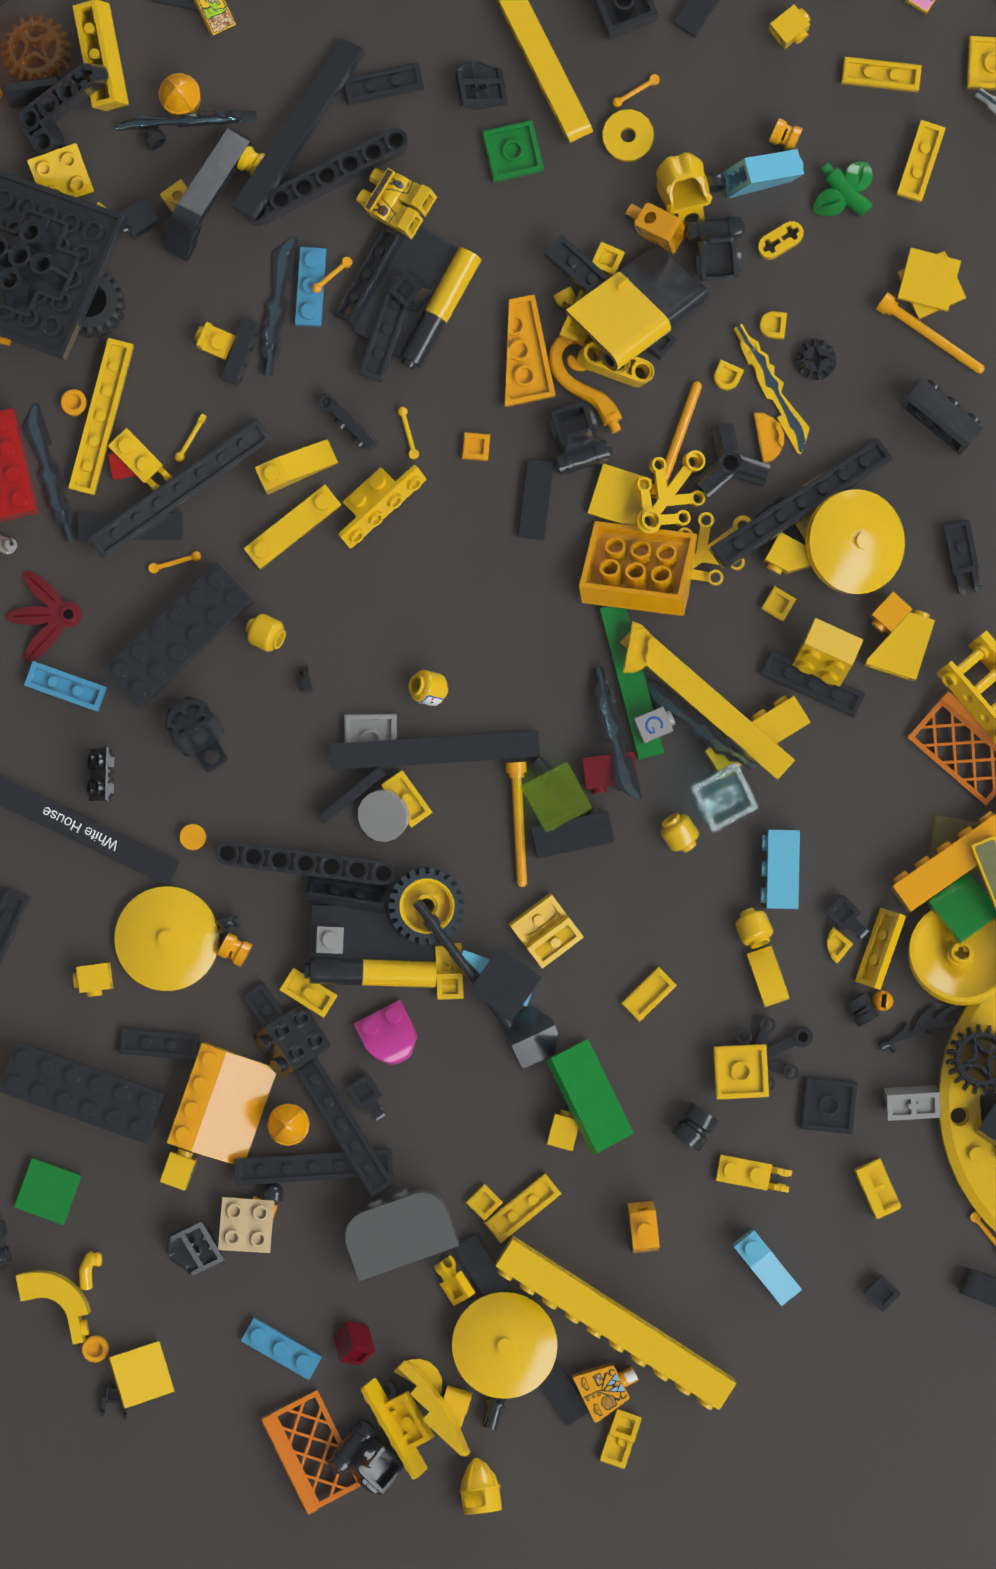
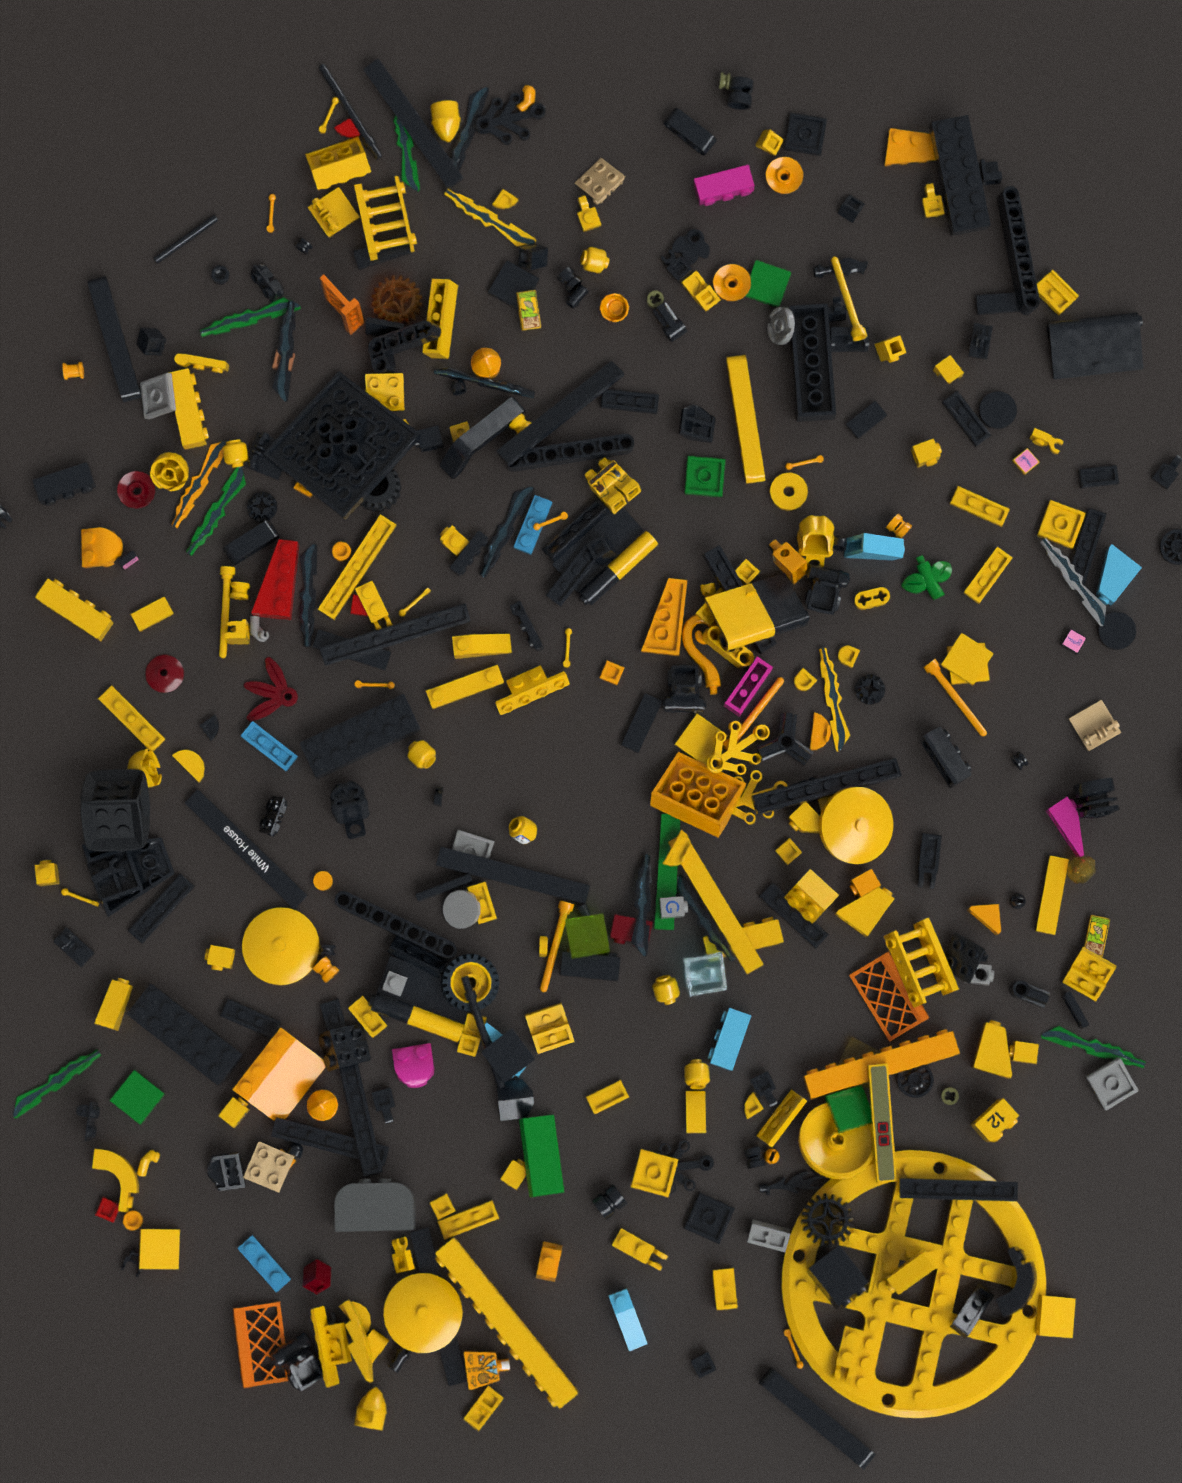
camera: 15 degrees right, 5 degrees down
(58, 1346) = (108, 1209): none -> red tile
(504, 828) = (543, 946): none -> yellow tile
(658, 407) = (748, 686): none -> dark pink brick

